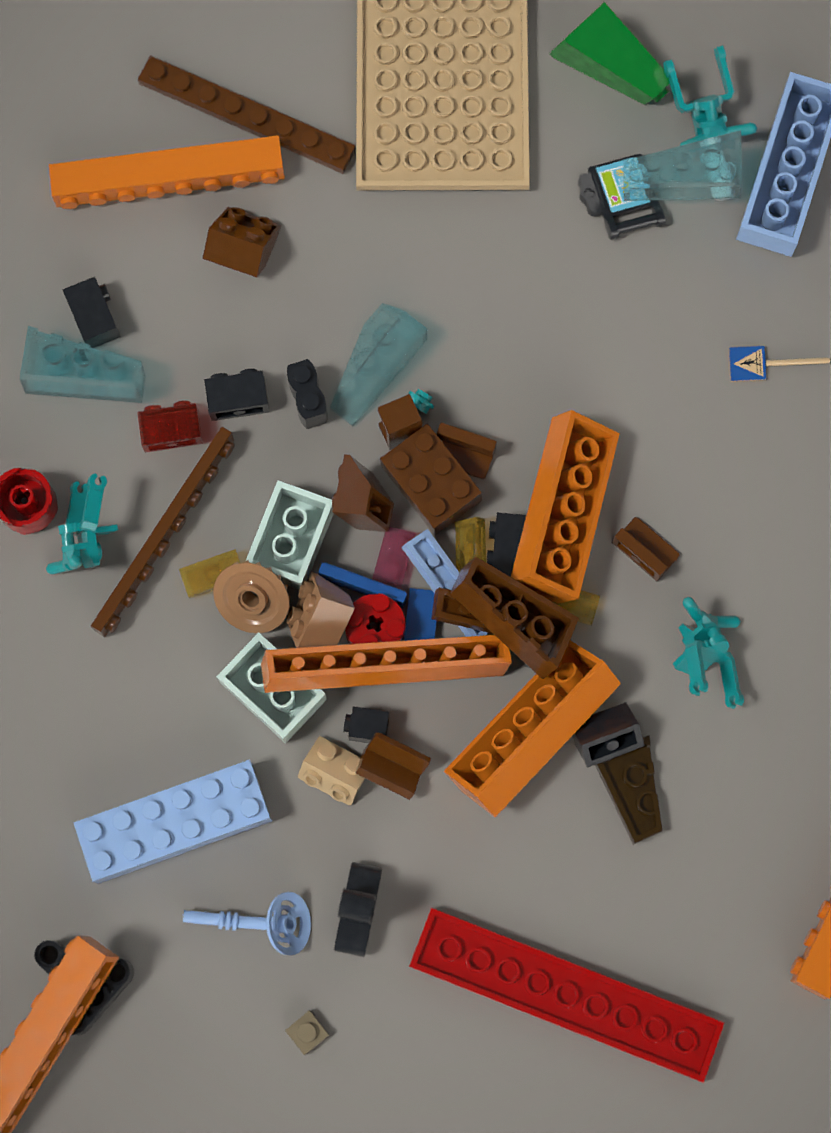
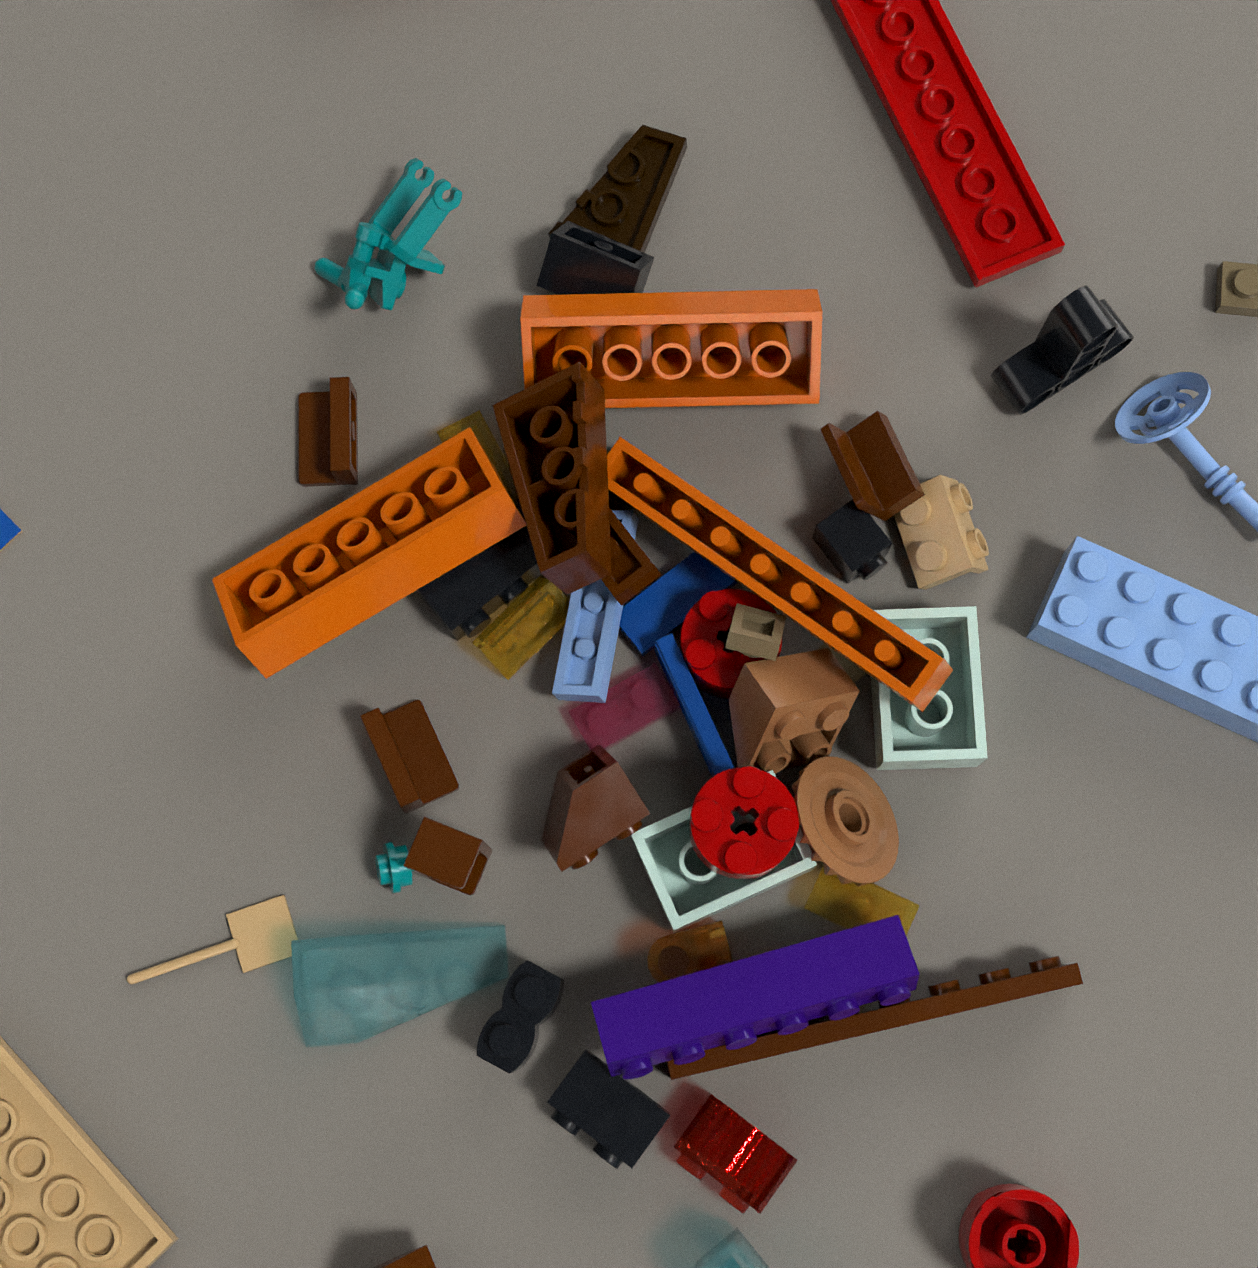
camera: 130 degrees left, 0 degrees up
(82, 522) = (976, 1112): teal piece -> none
(218, 488) = (755, 997): none -> dark purple brick
(254, 489) = (703, 945): none -> clear orange piece
(278, 529) = (745, 792): none -> red brick
(364, 627) = (755, 632): none -> dark tan plate
(431, 479) = (483, 752): reddish brown brick -> none
(447, 325) = (259, 935): none -> tan piece

